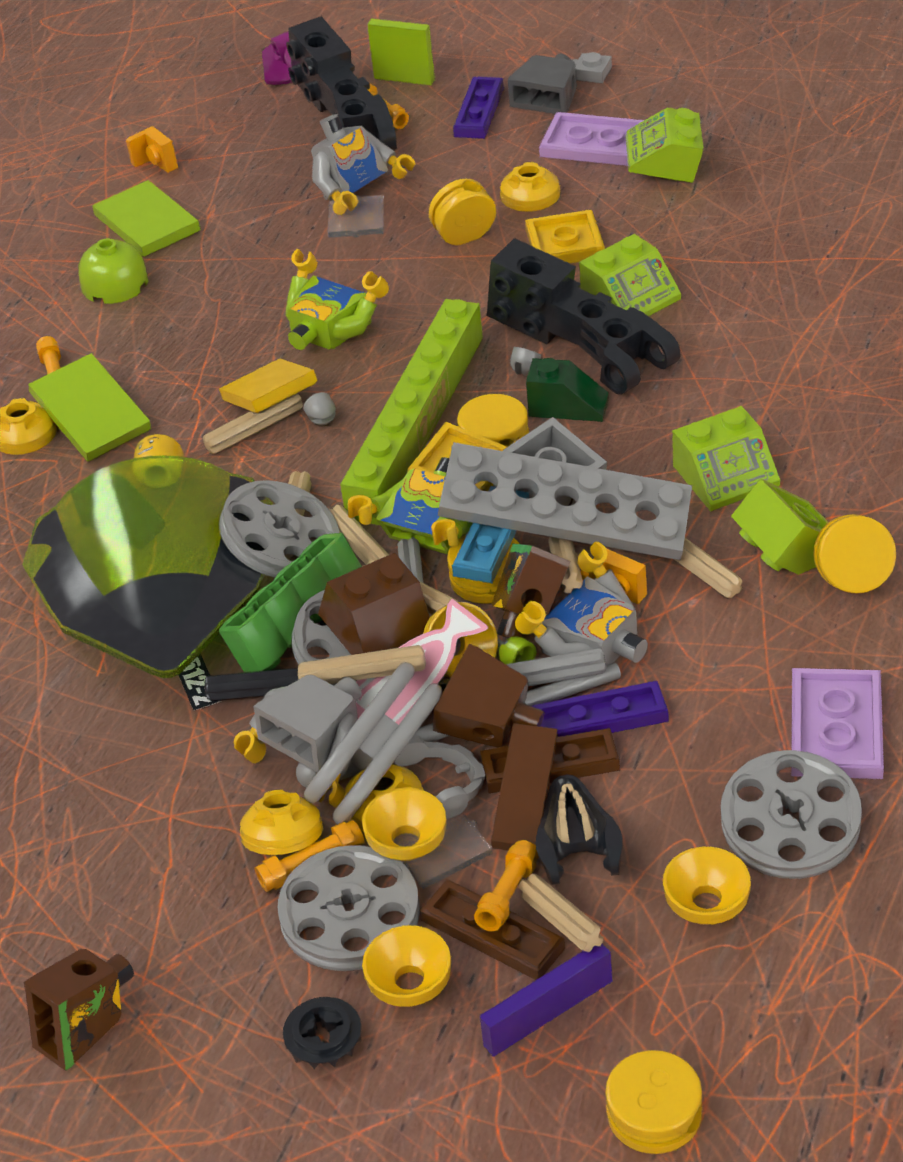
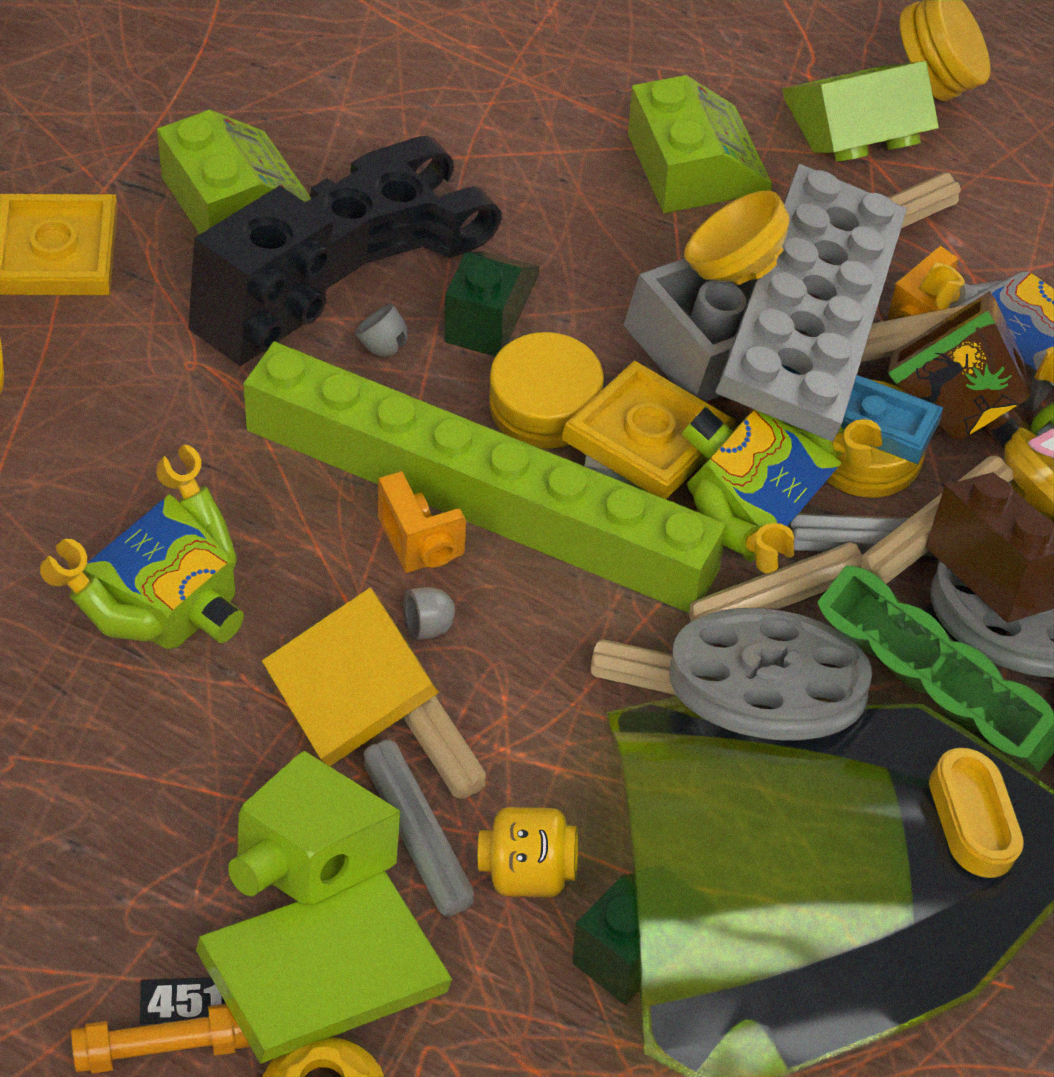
camera: 90 degrees left, 10 degrees up
(158, 380) = (312, 834): none -> lime torso
(170, 605) = (976, 812): none -> yellow tile
(193, 424) = (419, 828): none -> light grey axle
(375, 389) = (412, 531): none -> light orange bracket
(577, 446) = (740, 239): none -> yellow piece

